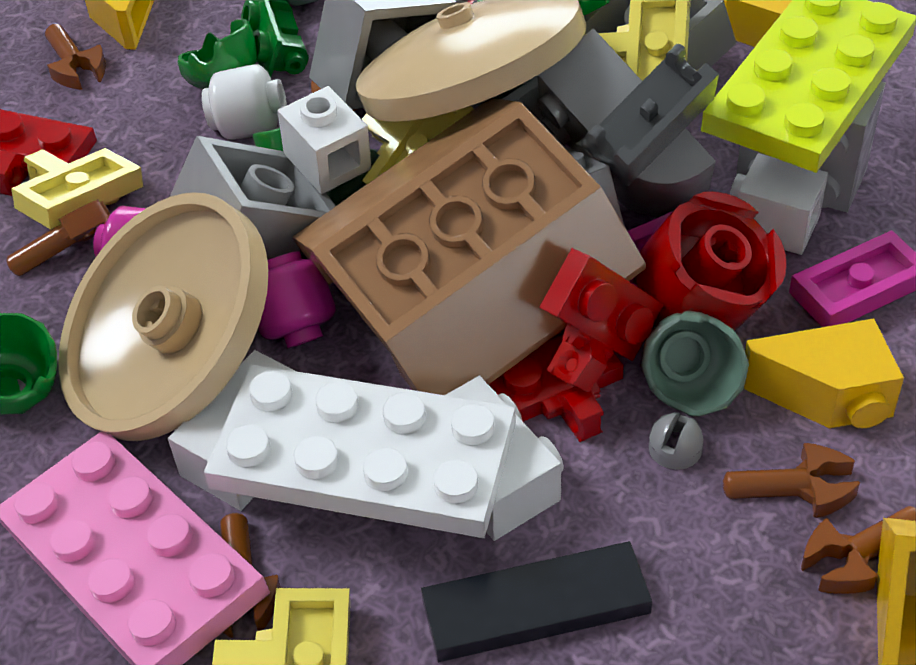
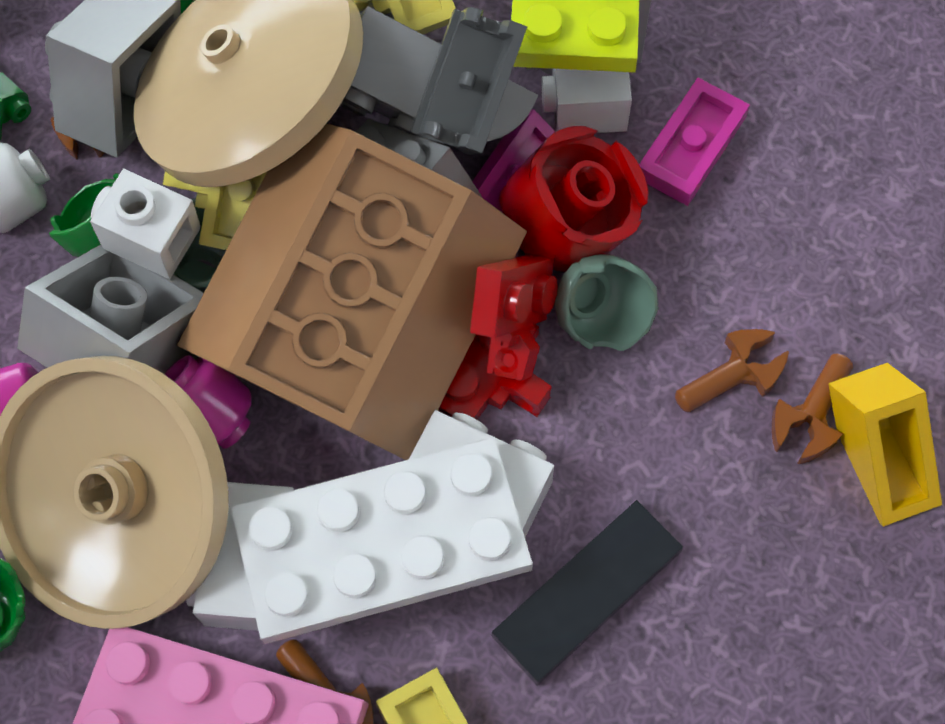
camera: 30 degrees left, 20 degrees up
(688, 444) = (606, 380): light grey hinge -> none
(827, 374) = (719, 256): yellow slope -> none

